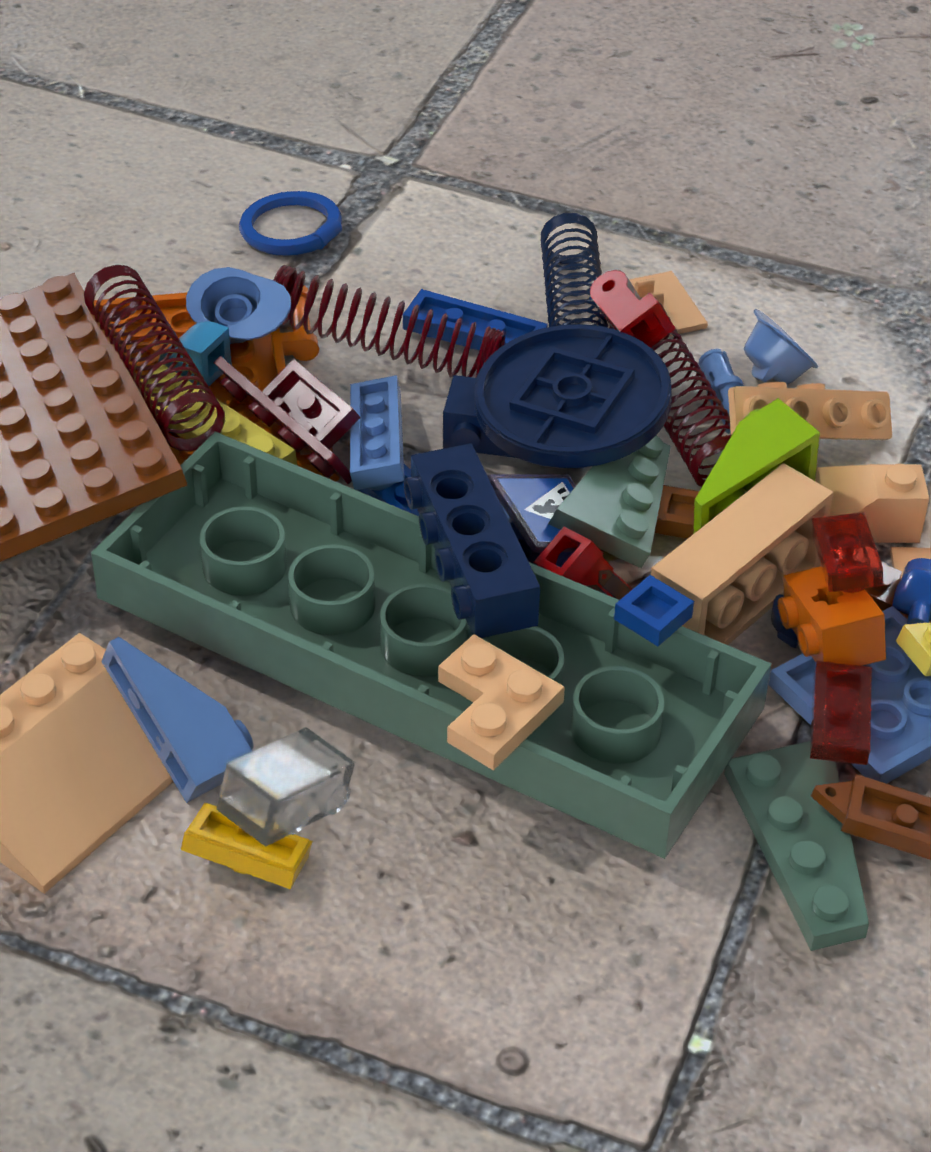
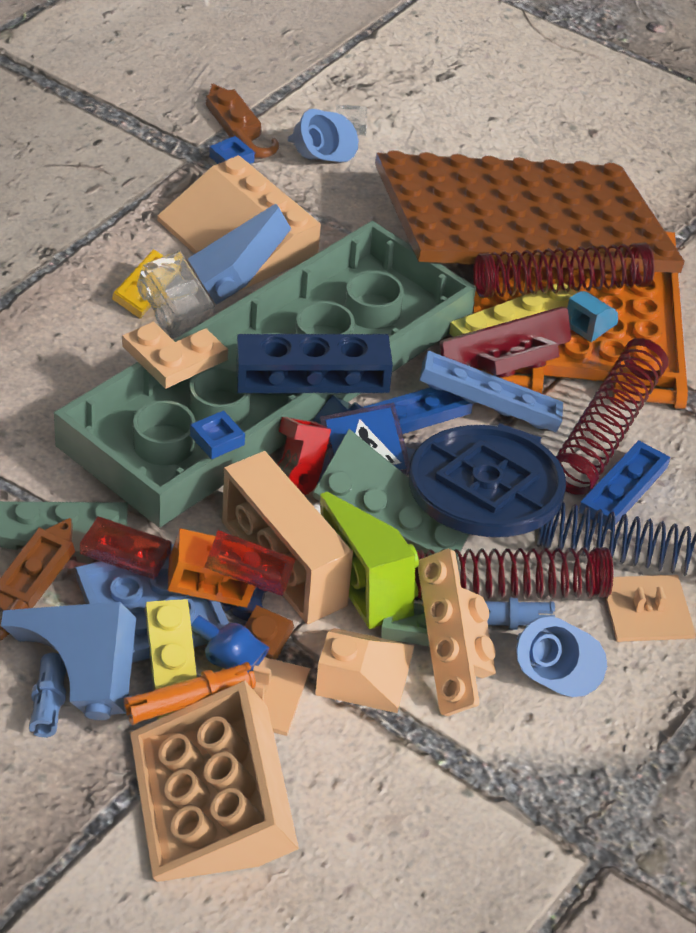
camera: 100 degrees right, 0 degrees up
(240, 301) = (625, 325): medium blue piece -> none
(627, 311) = (579, 531): leg -> none

